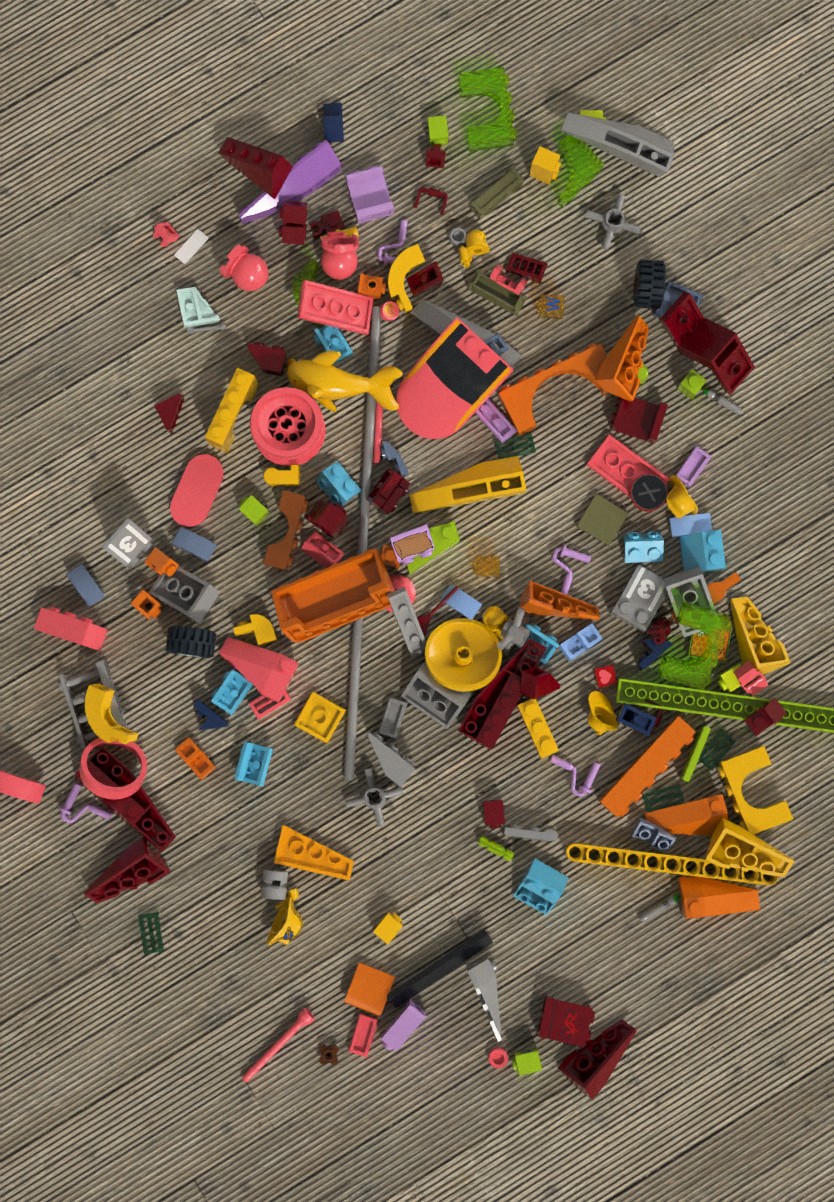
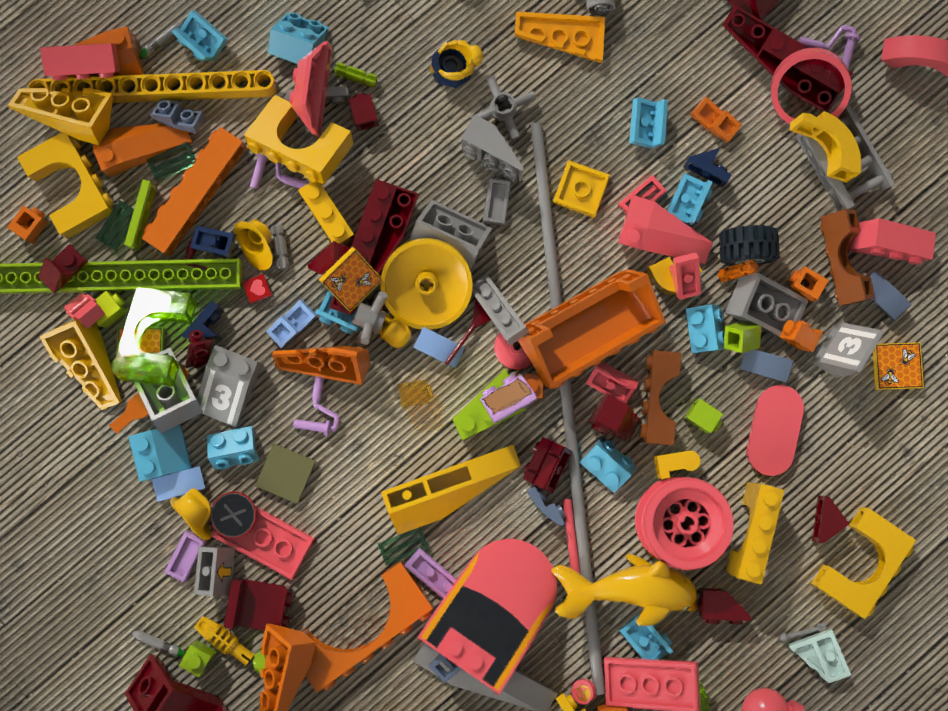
camera: 175 degrees right, 0 degrees up
(86, 526) = (898, 366): none -> tile
(112, 599) = (839, 231): none -> dark orange arch
(156, 349) = (892, 548): none -> yellow arch
(203, 623) = (737, 271): none -> orange axle
(210, 568) = (742, 337): none -> lime brick
(237, 582) = (705, 328): none -> medium azure bracket
(248, 623) = (686, 275): none -> coral slope
(409, 843) = (455, 63): none -> piece
(525, 663) = (351, 279): none -> tile
(535, 834) = (311, 87): none -> coral wedge
(541, 770) = (315, 161): none -> yellow arch
(581, 709) = (280, 246): none -> light grey axle
(624, 902) = (200, 37): none -> medium azure bracket
(669, 450) = (214, 571): none -> light grey brick
(670, 395) = (223, 639): none -> yellow hinge
(728, 891) = (80, 60): none -> coral wedge
(797, 761) = (22, 221): none -> orange brick

